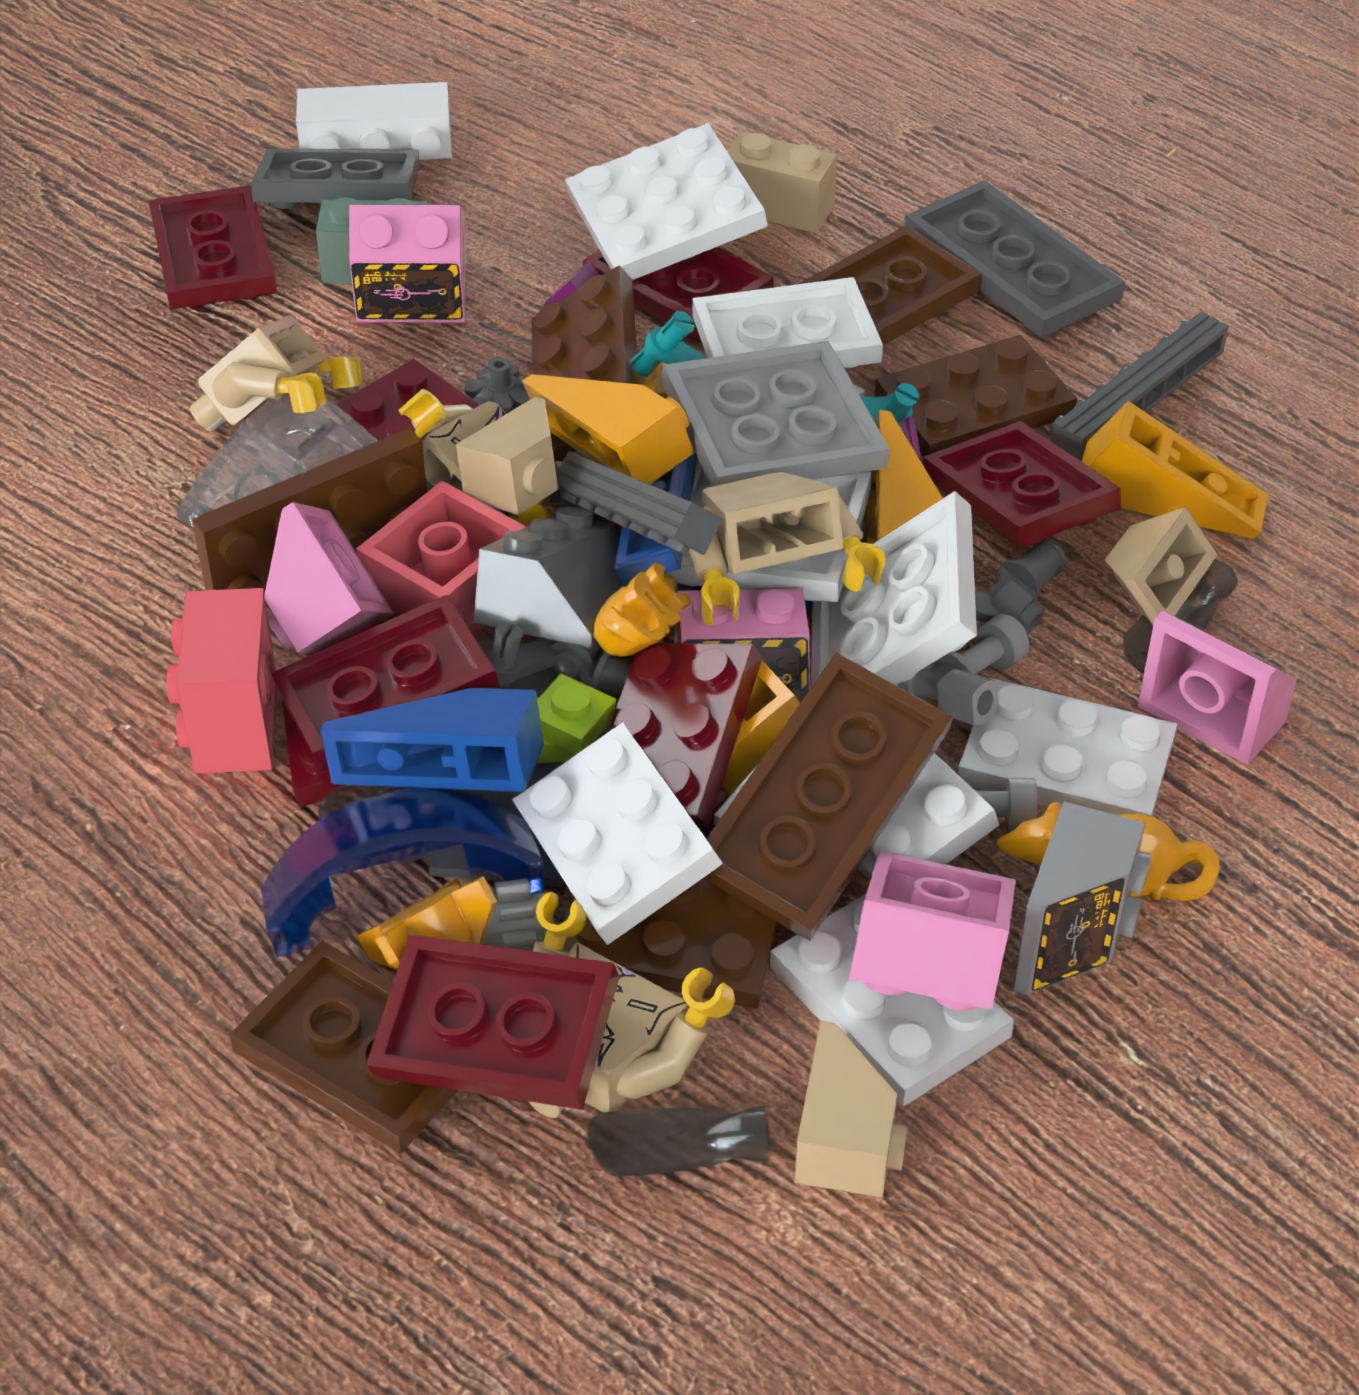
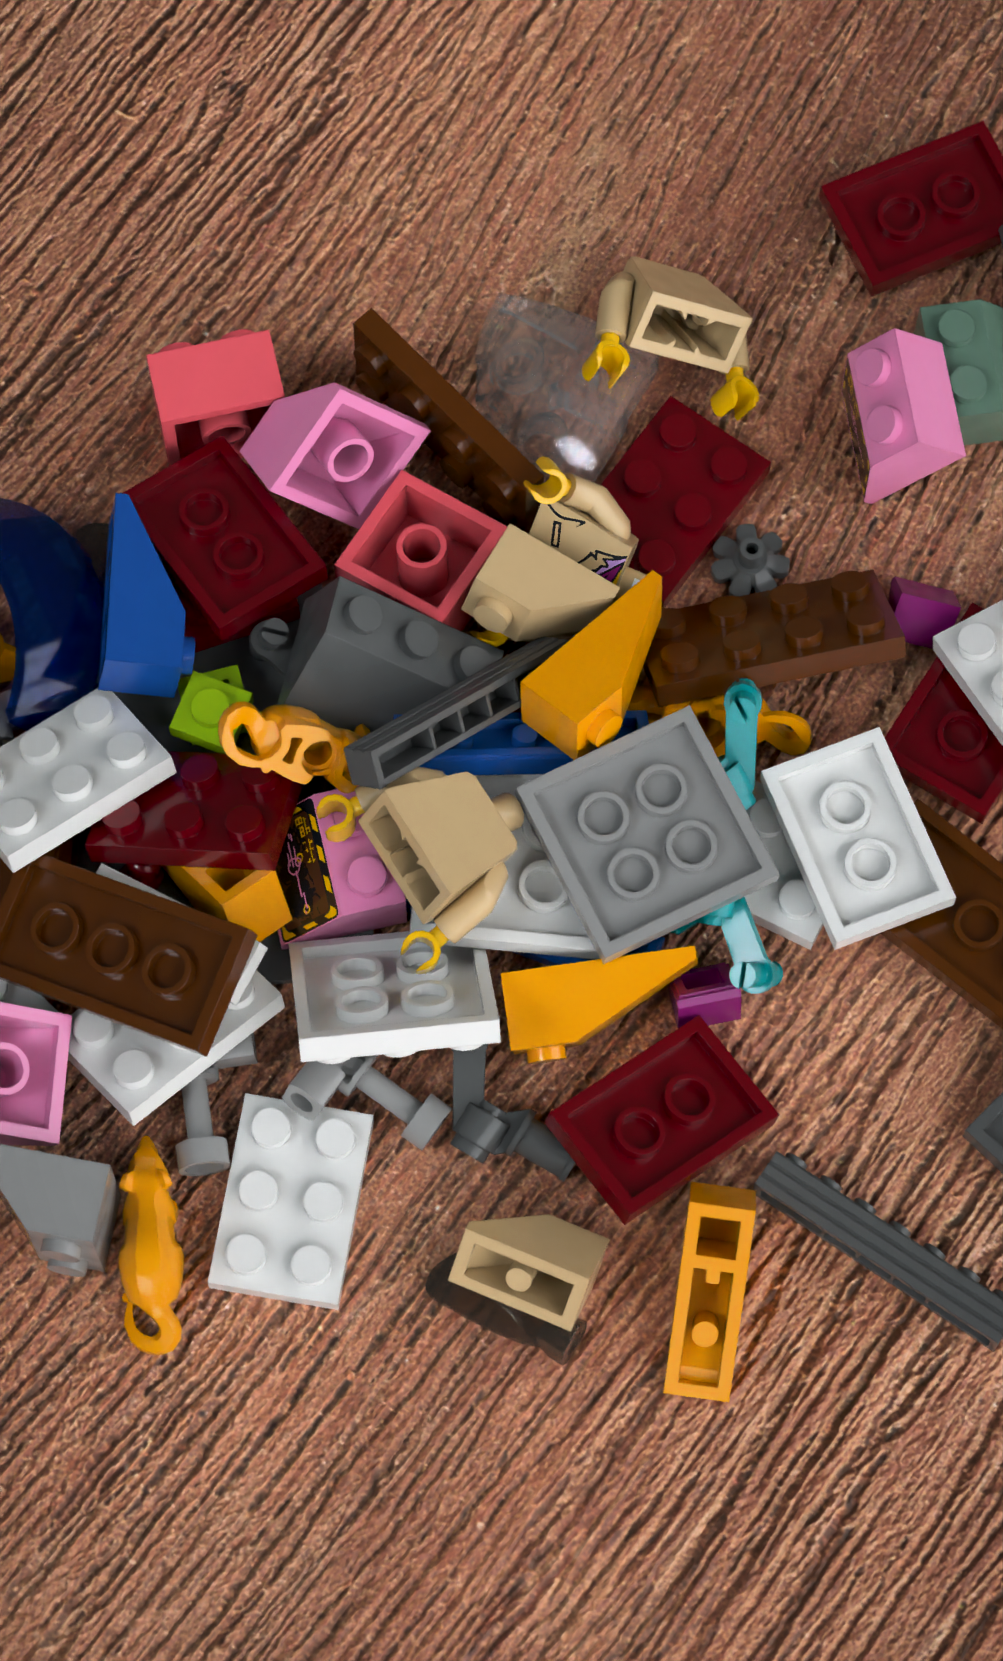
camera: 80 degrees right, 25 degrees up
(980, 393) = (838, 1068): reddish brown plate -> none
(1213, 689) = (381, 1336): bright pink slope -> none

